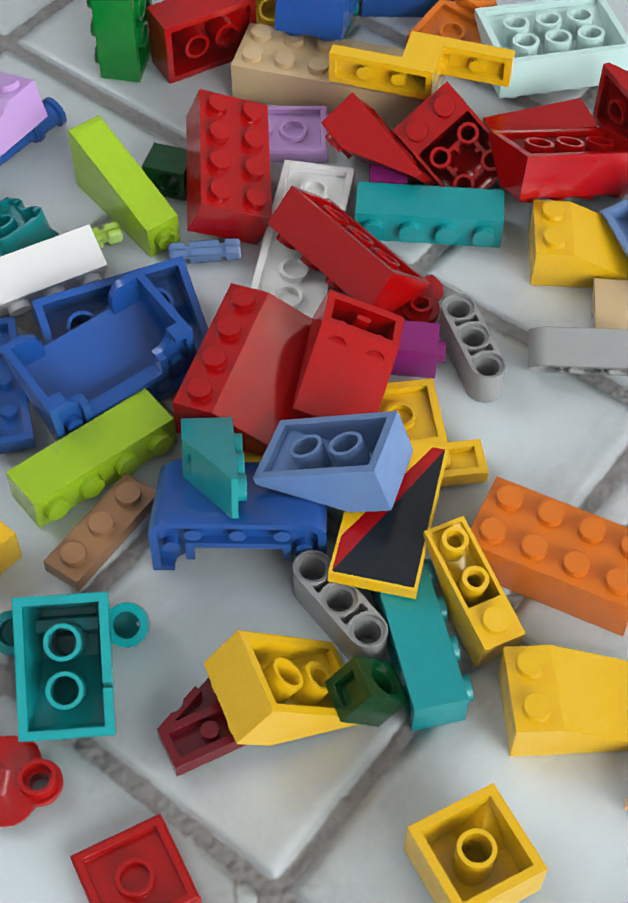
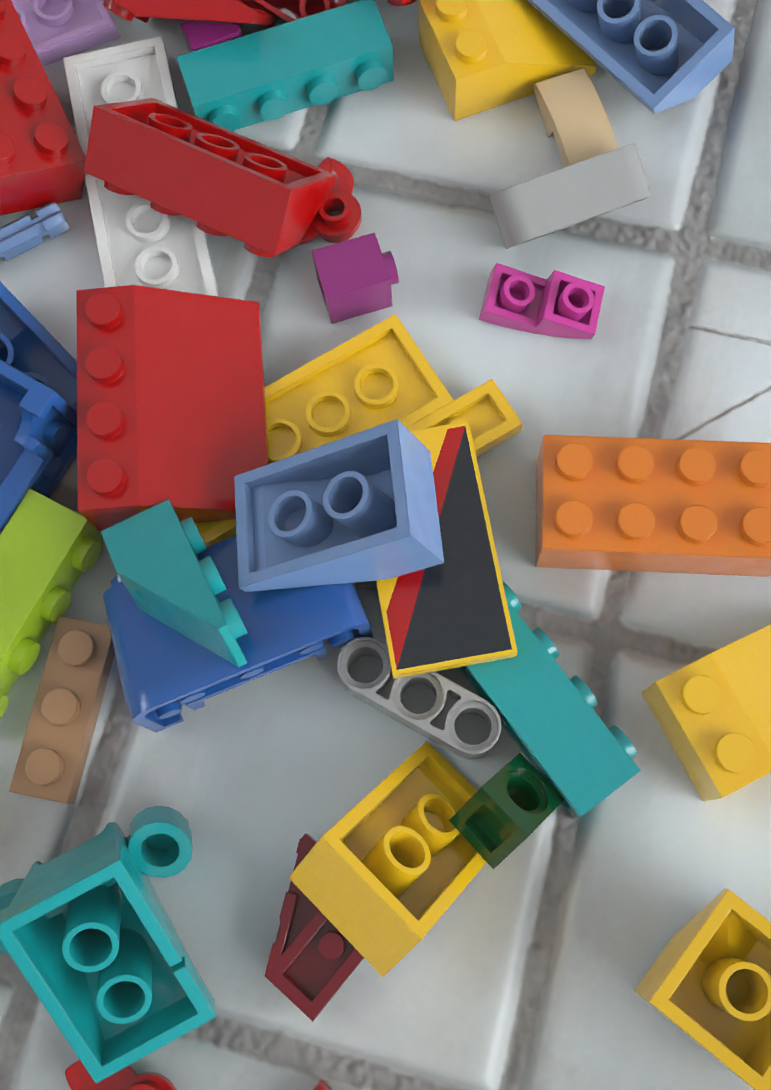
camera: 15 degrees left, 20 degrees up
(347, 358) = (284, 348): red slope -> none
(472, 348) = (416, 225): light grey beam -> none
(472, 592) = (582, 614): yellow slope -> none
(545, 416) = (536, 305): none -> dark pink slope

